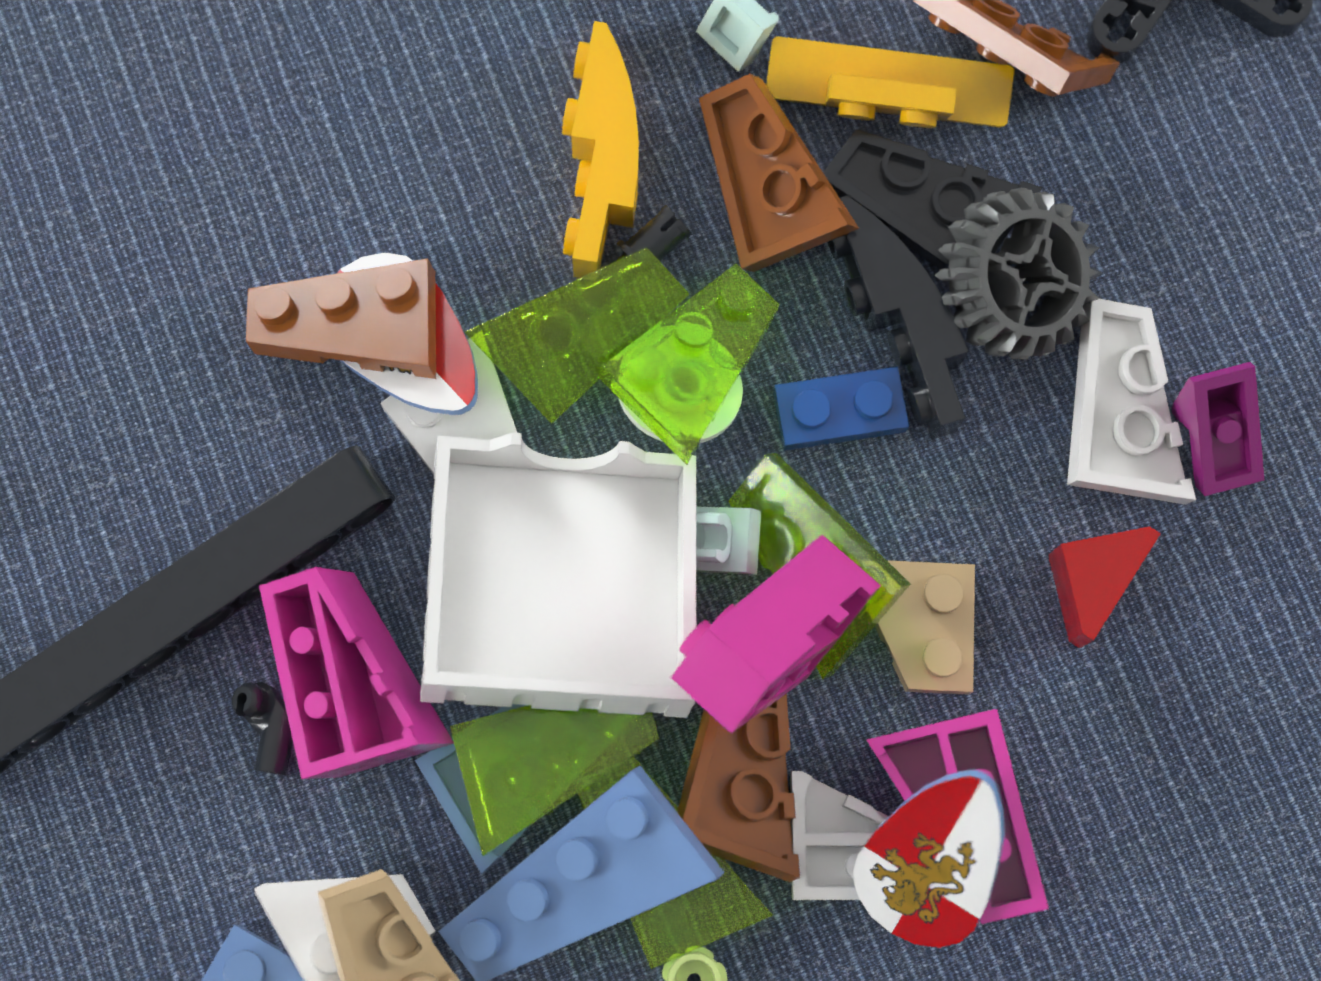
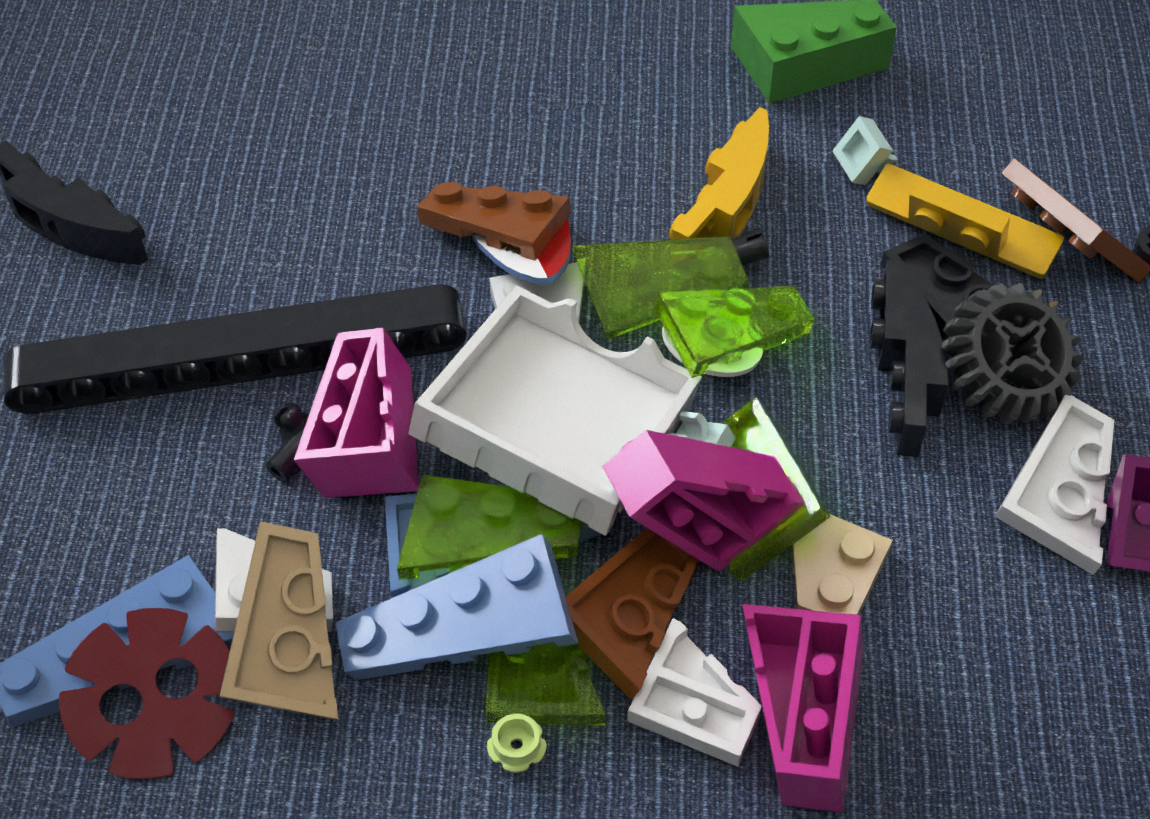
camera: 30 degrees right, 25 degrees down
(768, 177) = (842, 241): dark orange wing -> none
(840, 408) = (831, 405): blue plate -> none
(934, 860) = (755, 694): shield -> none
(1094, 576) = (996, 581): red slope -> none

